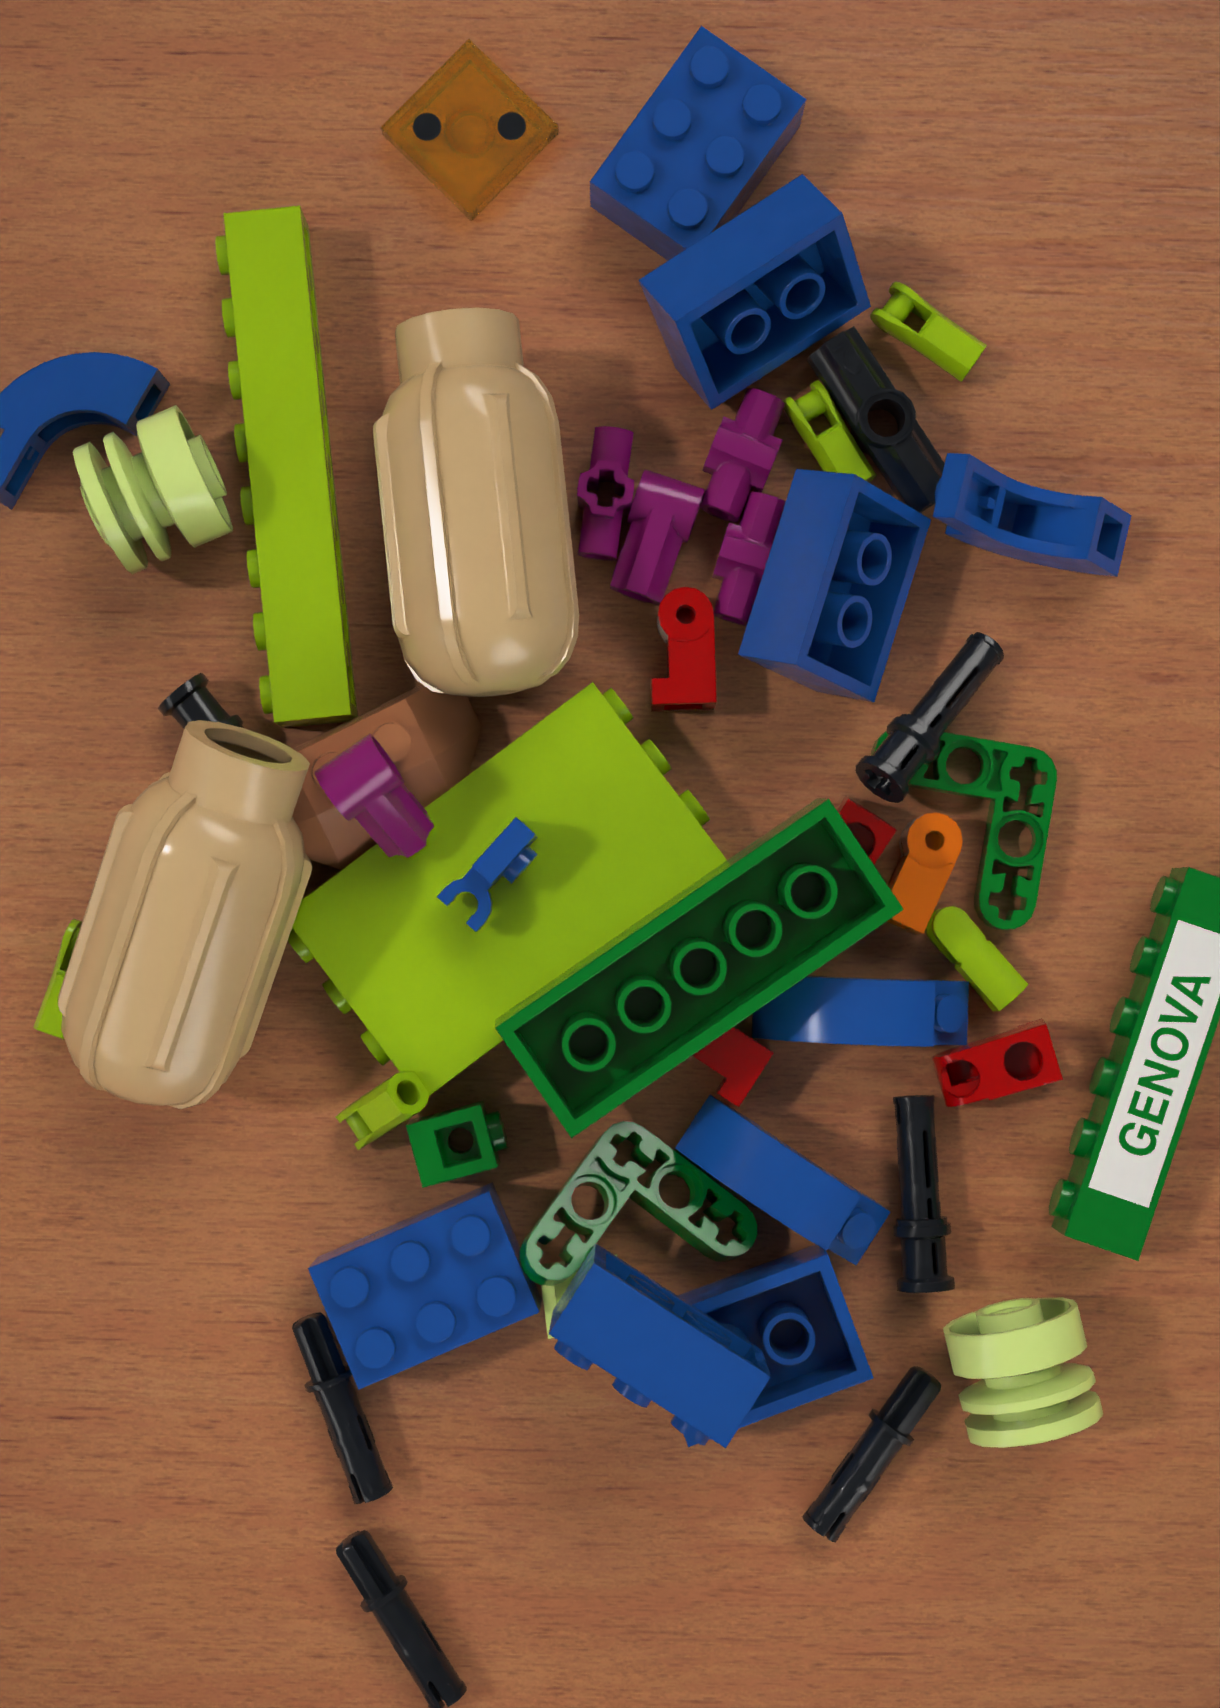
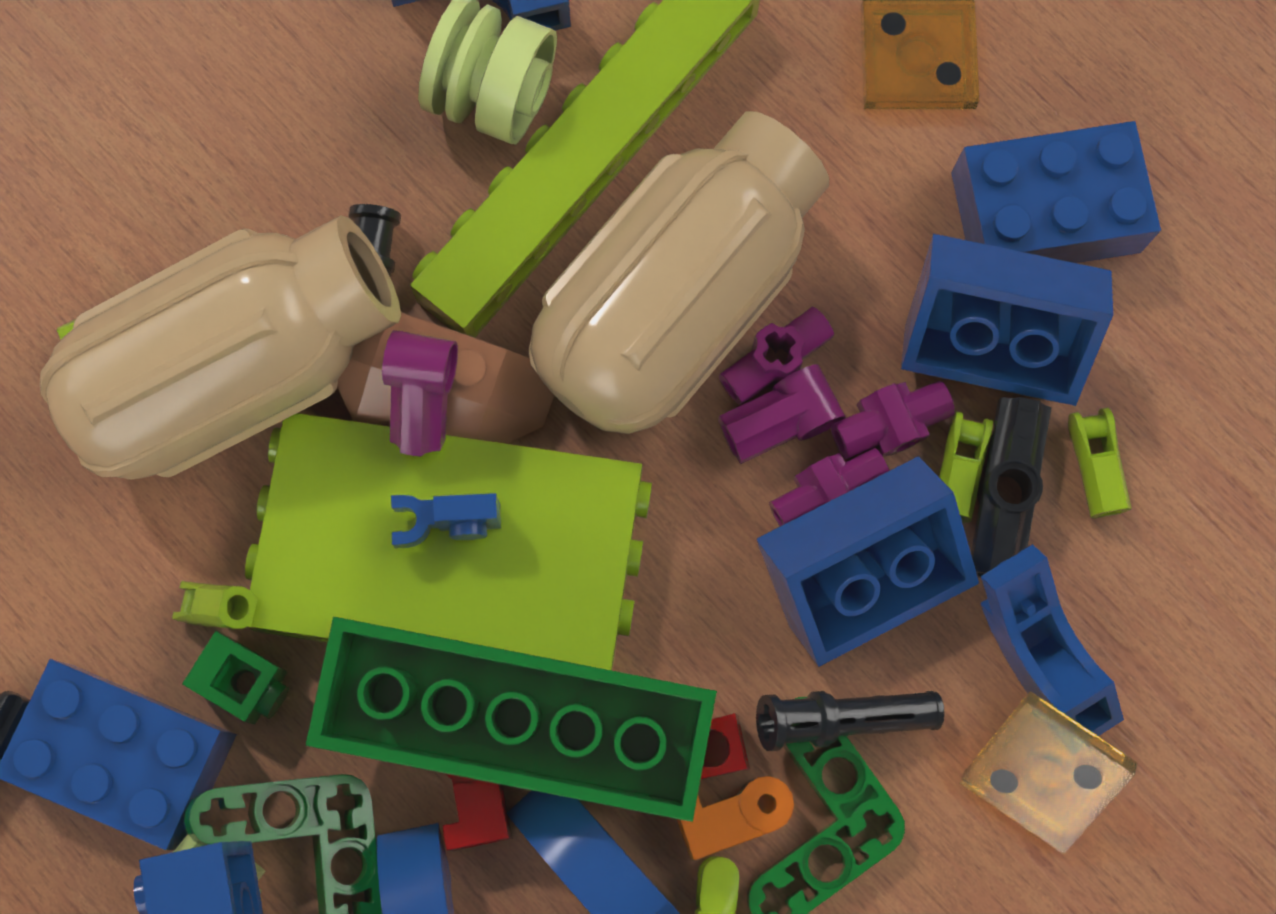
camera: 45 degrees right, 10 degrees down
(688, 629) = (727, 514): red leg -> none
(1115, 611) = (1048, 773): none -> clear yellow tile

